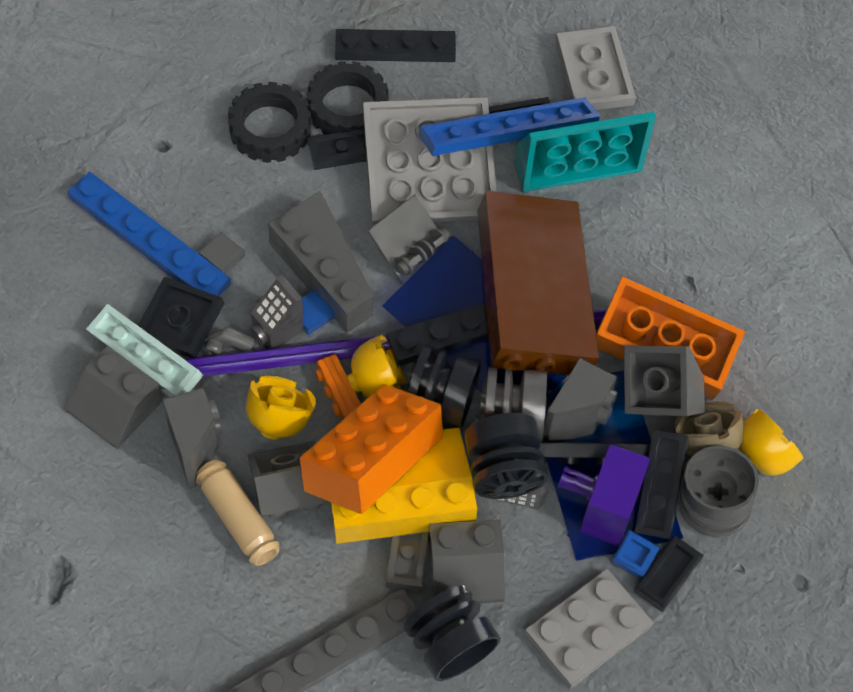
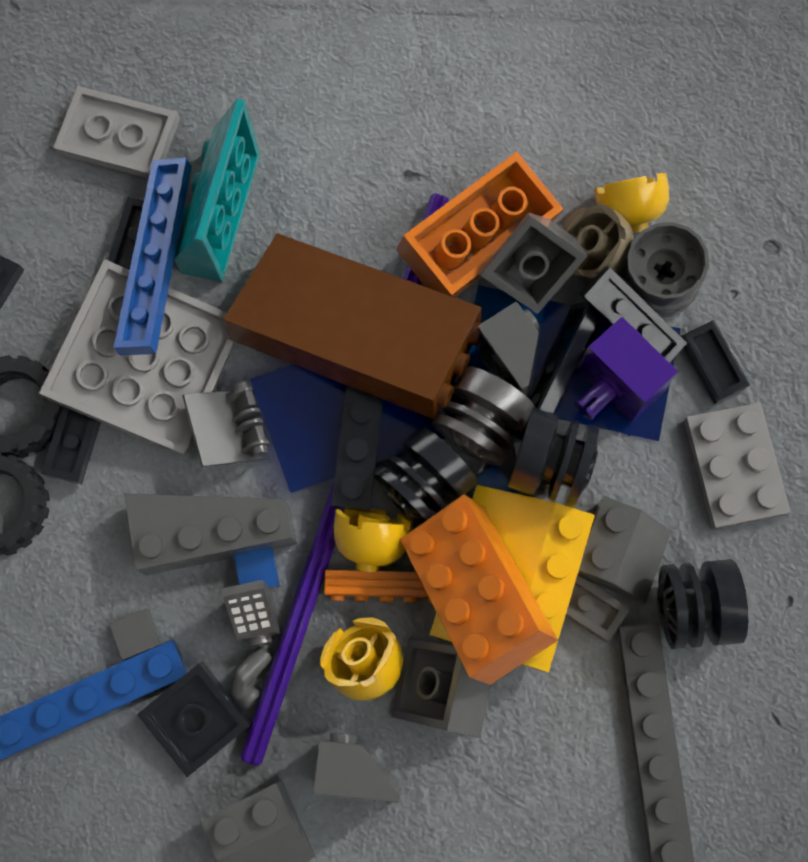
camera: 55 degrees left, 15 degrees up
(144, 351) = (222, 779): light aqua plate -> none
(237, 512) = (460, 760): tan axle -> none
(635, 554) = (685, 384): blue tile -> none

